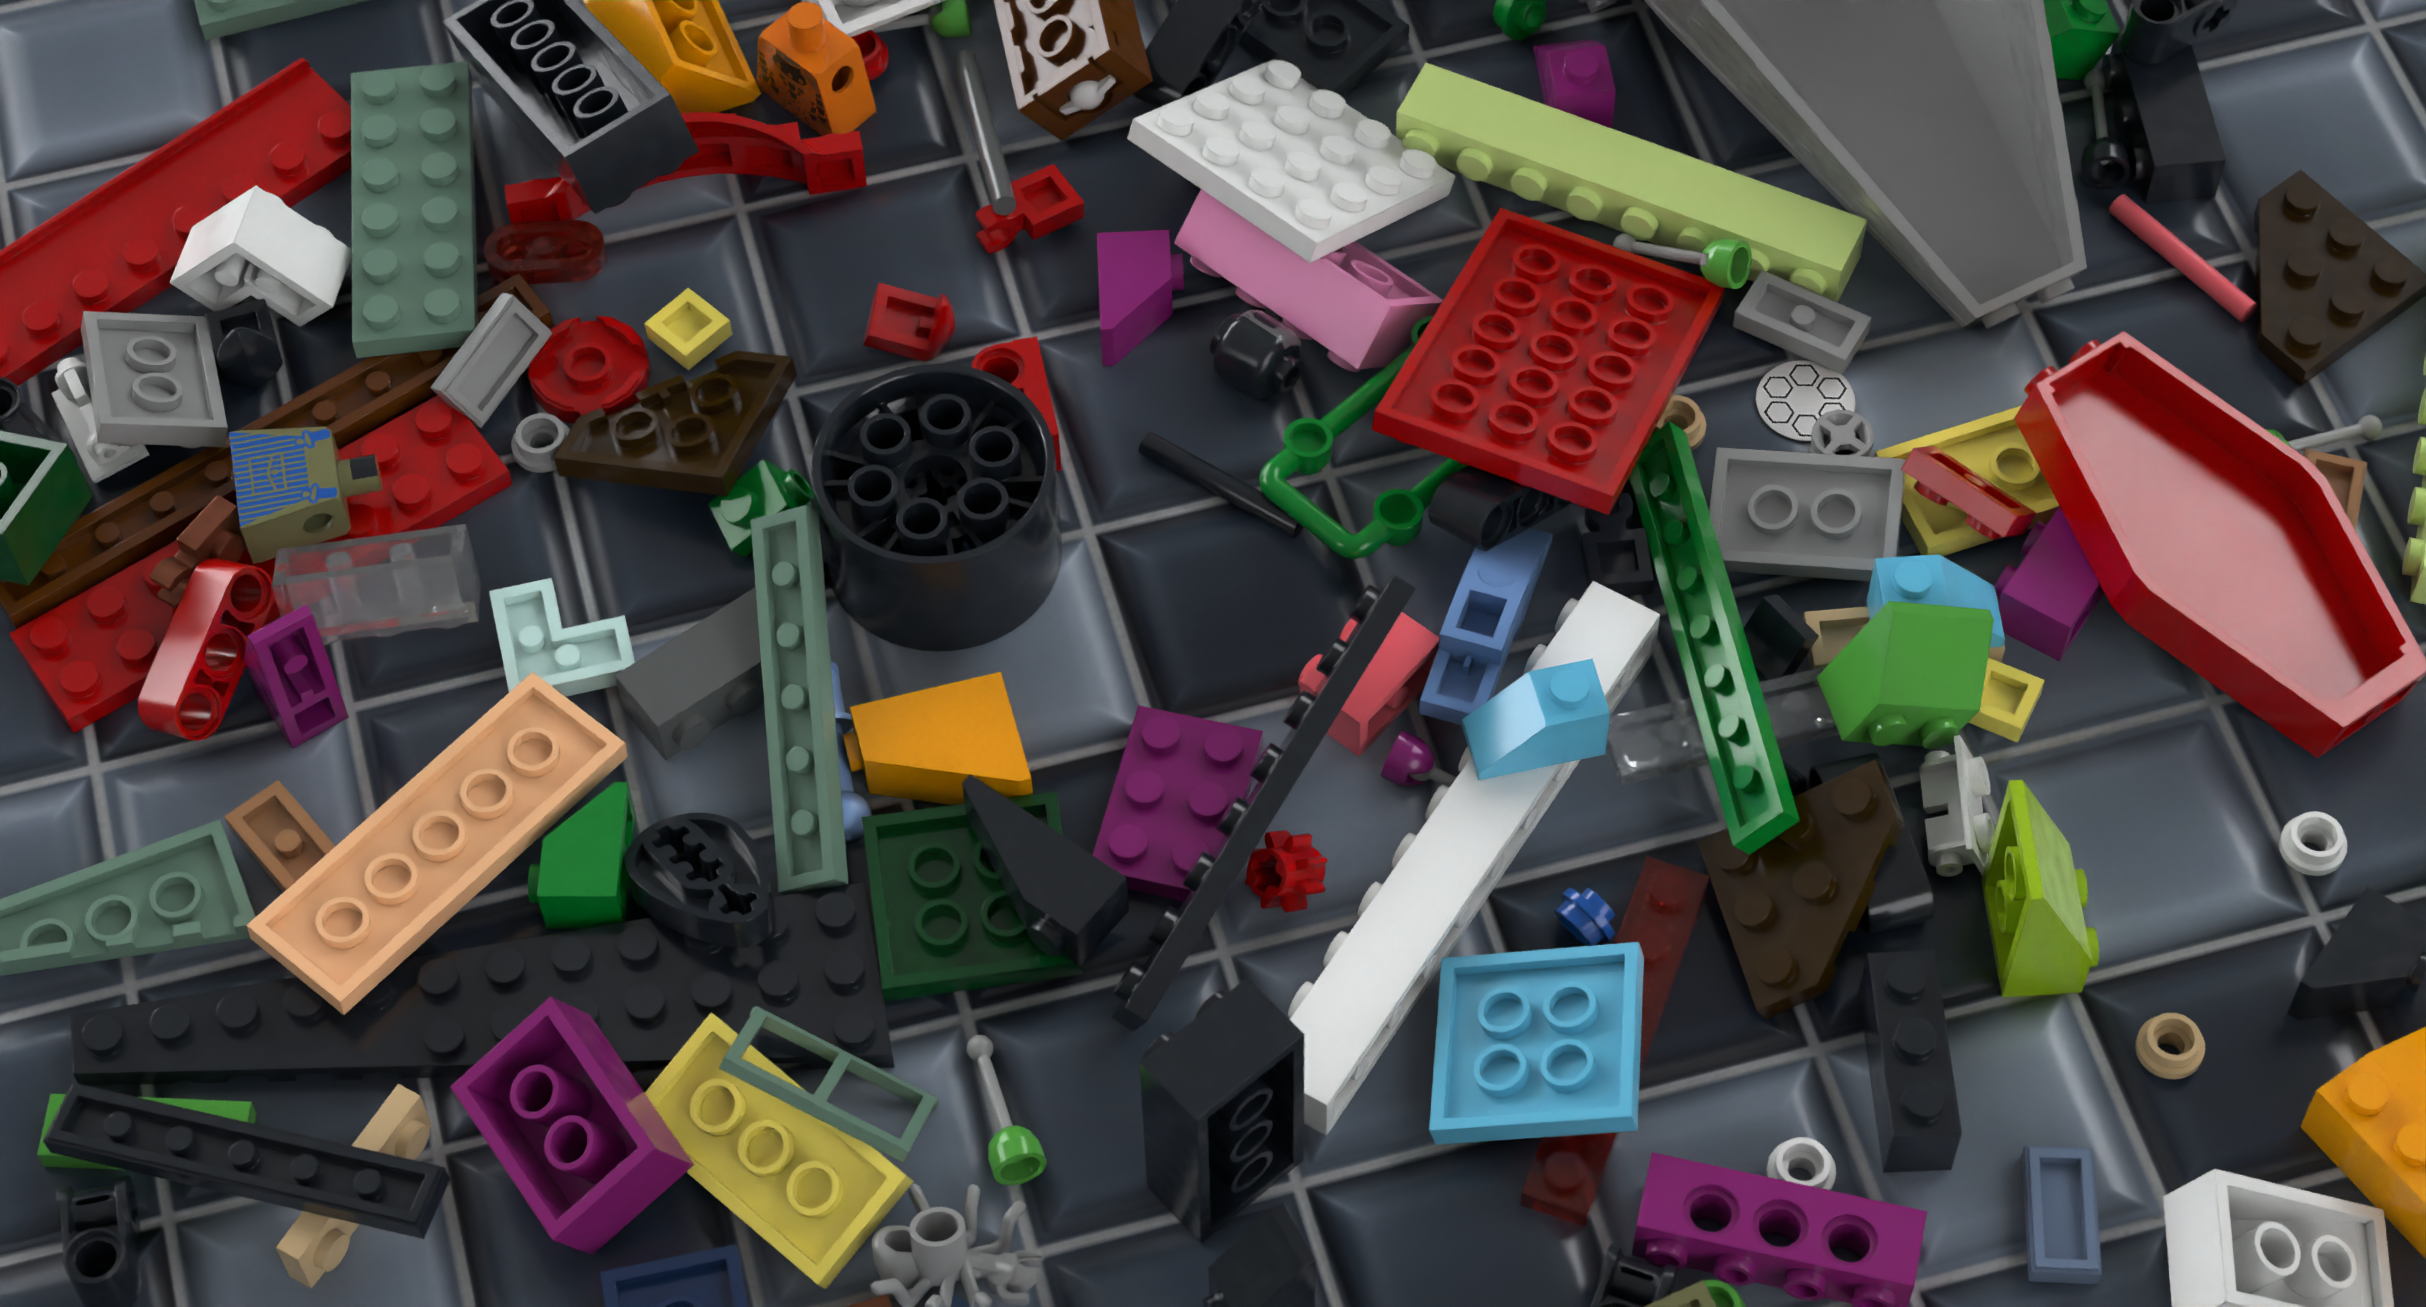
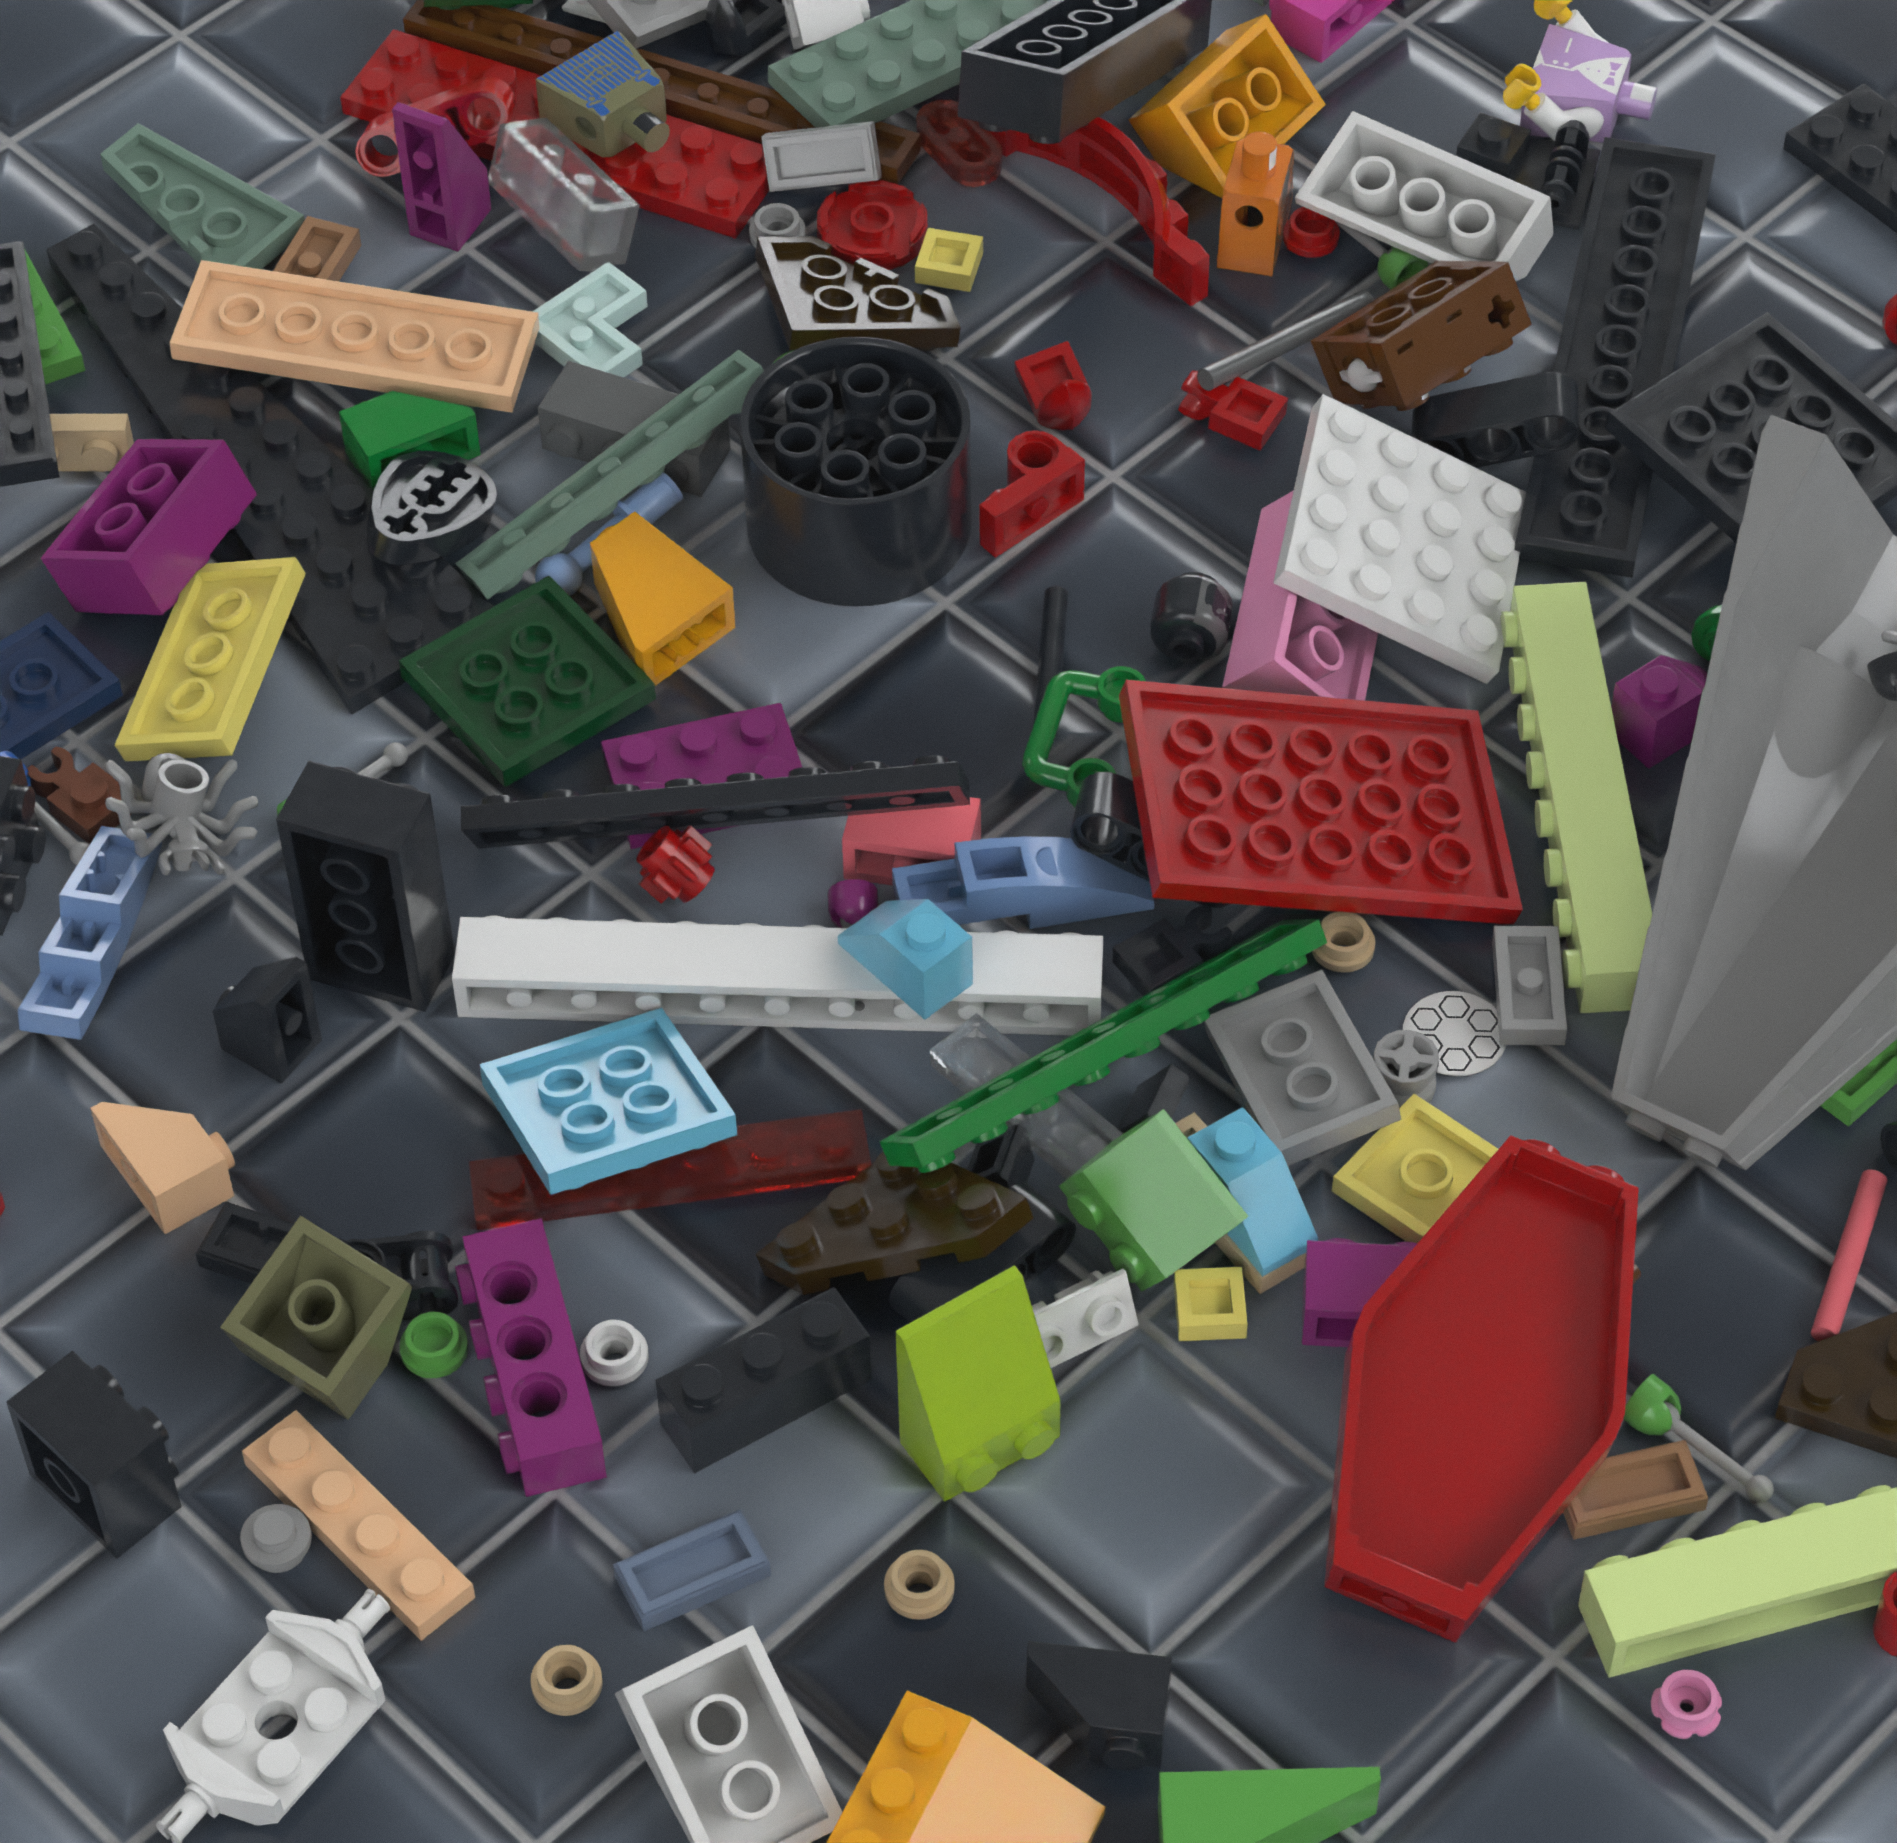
camera: 60 degrees right, 5 degrees down
(209, 536) = (516, 69): copper plate -> none
(817, 1104) = (244, 653): sand green window -> none
(1055, 886) = (548, 700): black slope -> none
(1134, 288) = (1194, 508): magenta slope -> none
(1586, 916) = (768, 1090): blue plate -> none
(1722, 261) = (1532, 877): bright green hinge -> none
(1947, 480) = (1400, 1168): red plate -> none
(2316, 829) = (1224, 1601): white plate -> none

